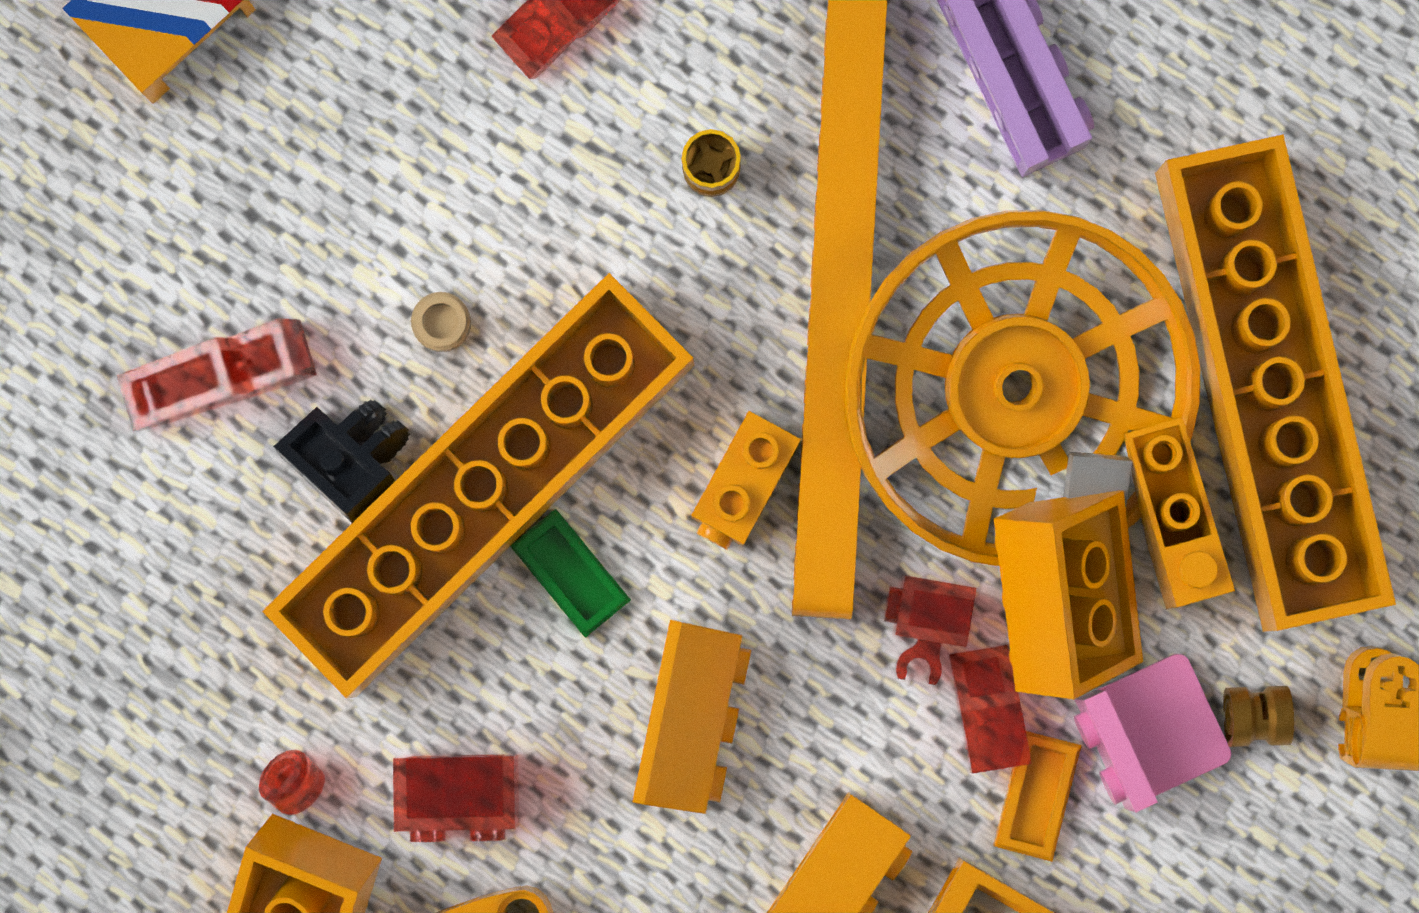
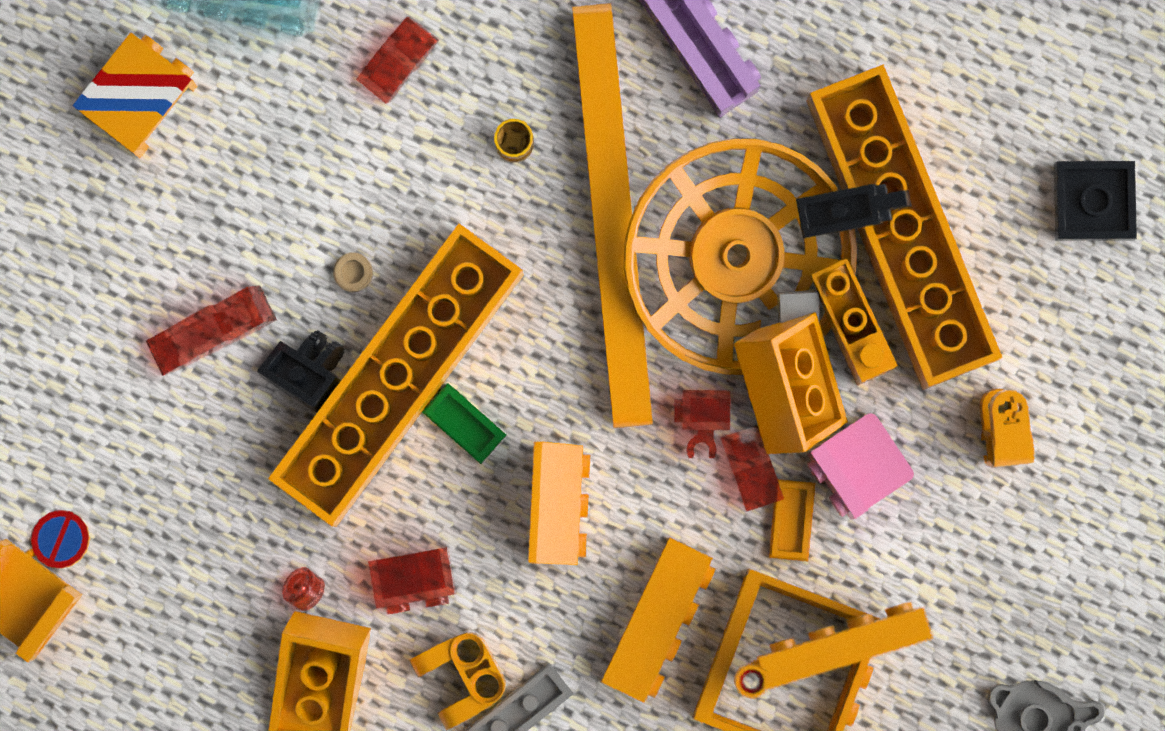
camera: 10 degrees left, 0 degrees up
(744, 481) = (568, 345): light orange brick -> none
(1199, 344) = (848, 209): none -> black hinge
(1258, 716) = (927, 445): pearl gold wheel -> none

